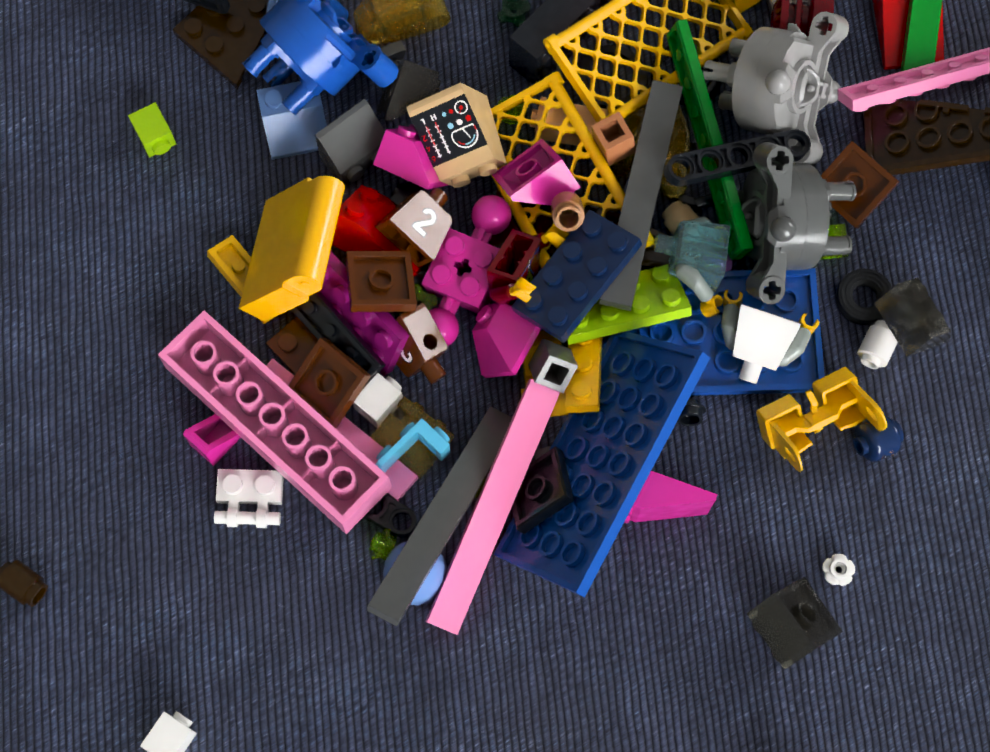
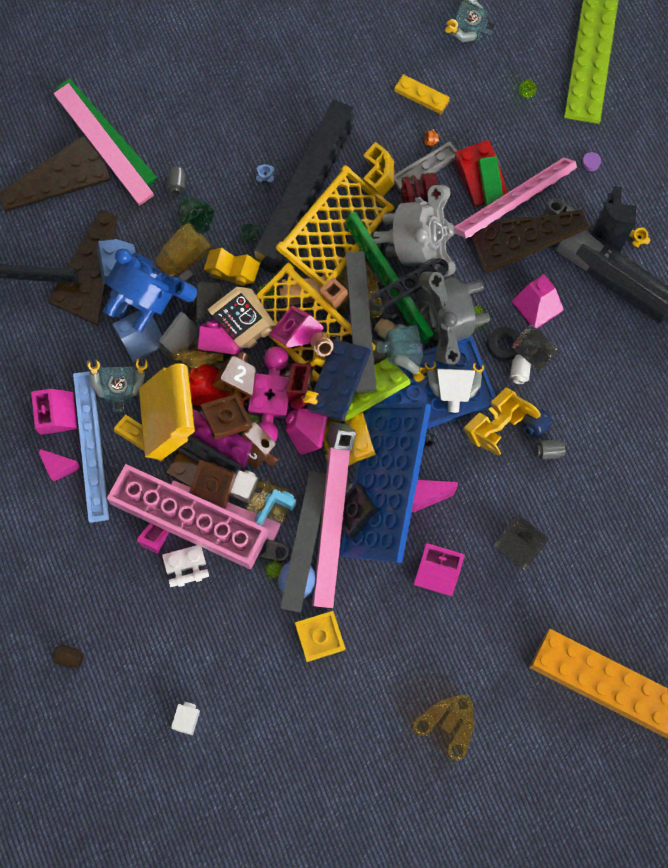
camera: 20 degrees left, 0 degrees up
(103, 284) = (57, 465): none -> dark pink slope
(125, 198) = (54, 411): none -> dark pink slope
(152, 130) = (56, 365): lime brick -> none
(164, 270) = (91, 448): none -> light blue plate
(234, 183) = (117, 383): none -> torso
(369, 177) = (197, 357): none -> clear yellow plate
(422, 674) = (320, 636): none -> yellow plate
(461, 53) = (231, 268): none -> yellow brick
(645, 626) = (439, 569): none -> dark pink slope
(830, 573) = (537, 509): white plate -> none
(871, 183) = (486, 273): reddish brown plate -> none
(887, 487) = (550, 449): none -> dark grey brick
(940, 246) = (538, 302): none -> dark pink slope

